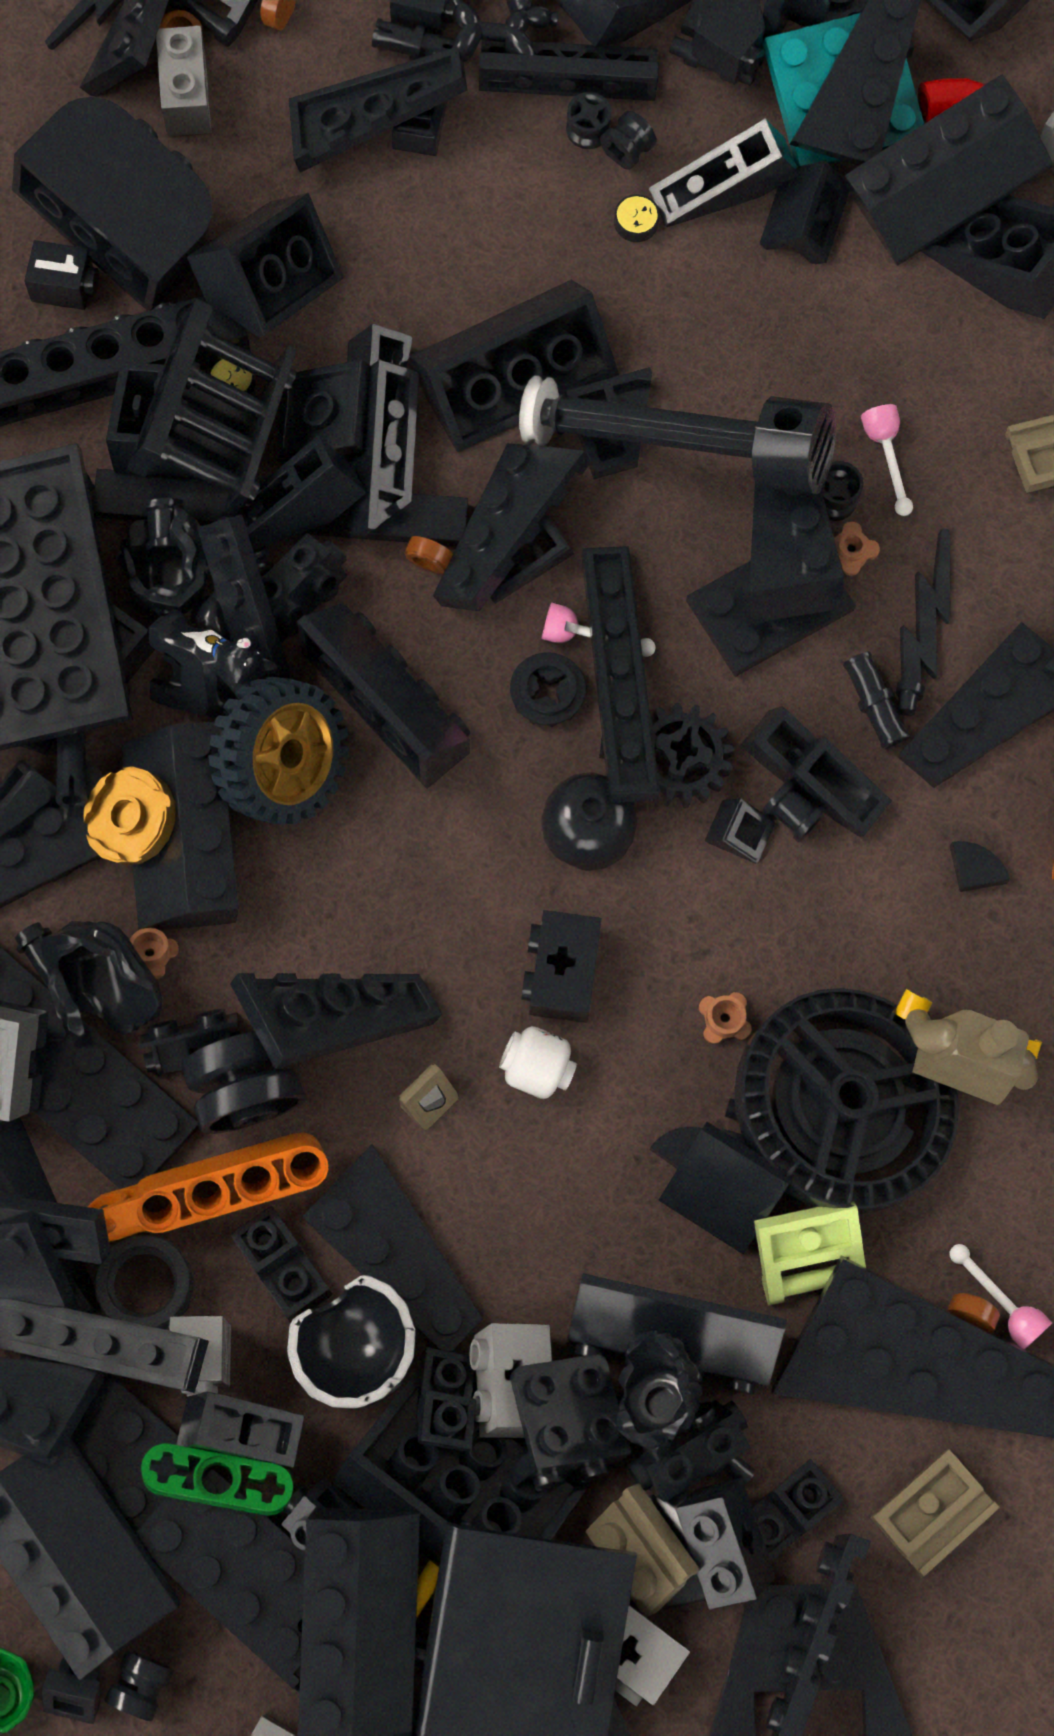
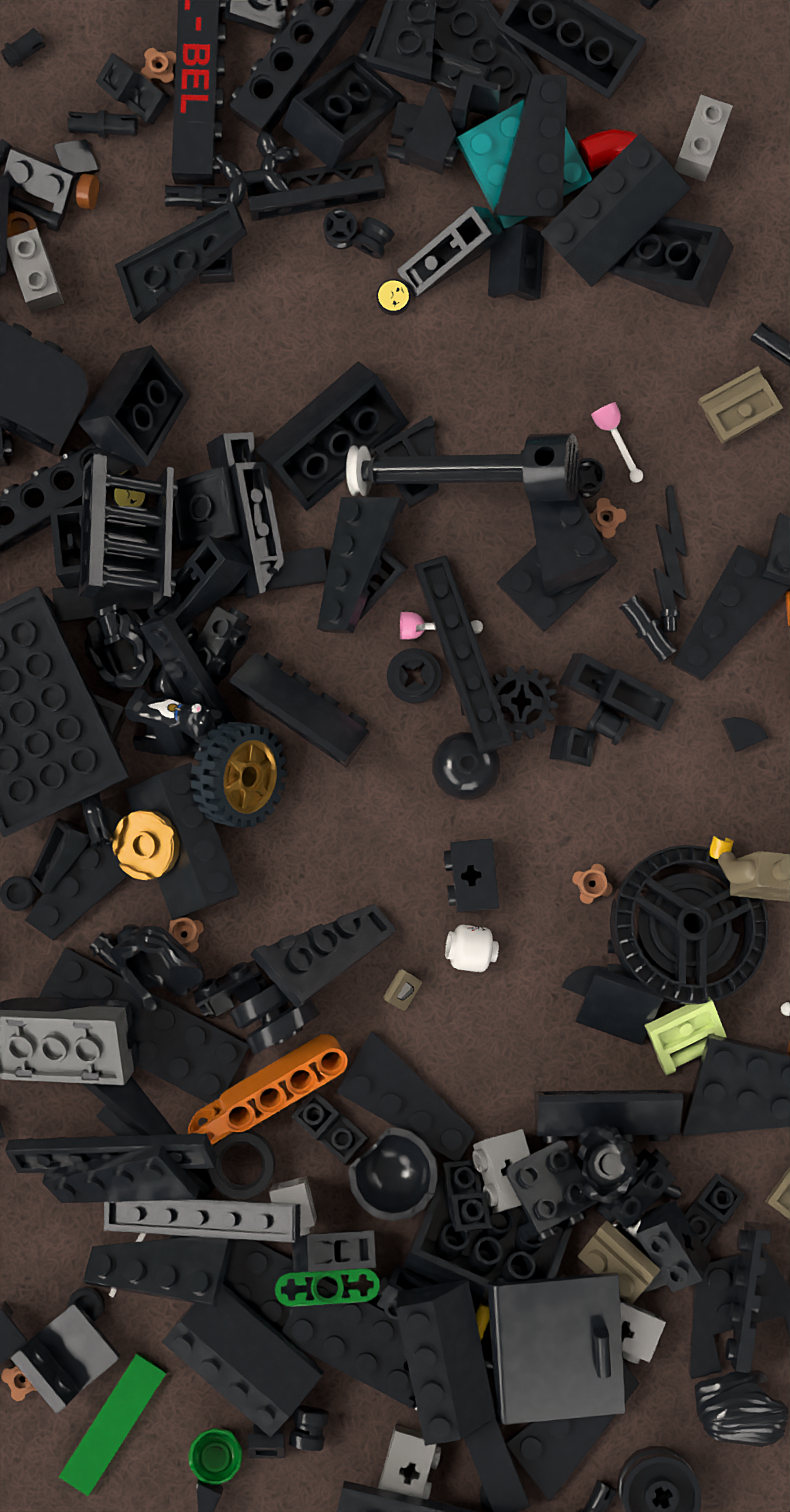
camera: 10 degrees left, 10 degrees up
(428, 554) = (305, 597): dark orange tile -> none

